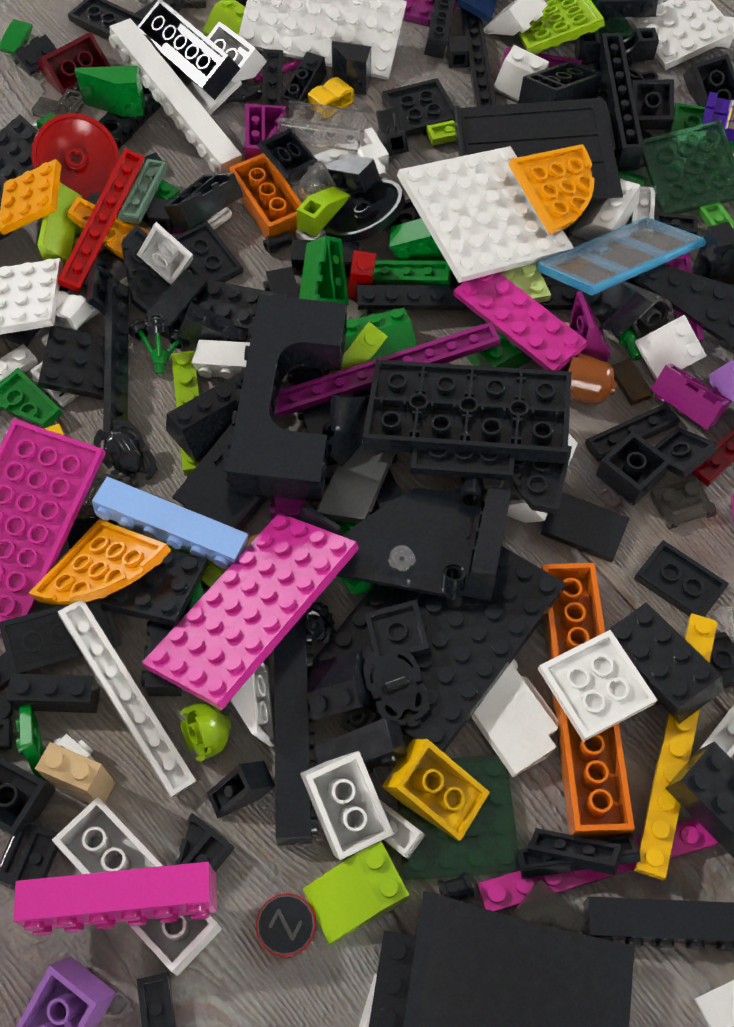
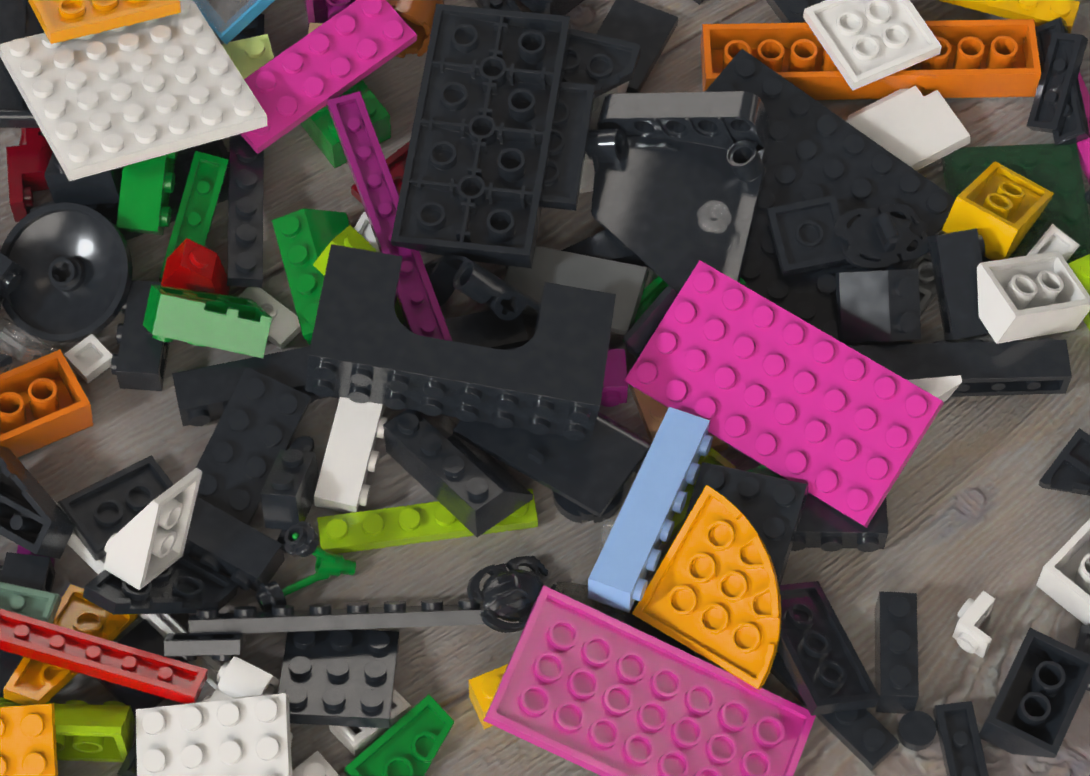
camera: 90 degrees left, 0 degrees up
(30, 737) = (963, 670): green wing -> none
(75, 774) = (1017, 596): tan brick -> none
(127, 698) = (899, 556): white plate -> none
(205, 730) = (941, 465): lime cylinder -> none
(240, 788) = (1007, 425): black slope -> none
(273, 243) = (103, 413): black pin -> none
(320, 209) = (59, 327): lime slope -> none

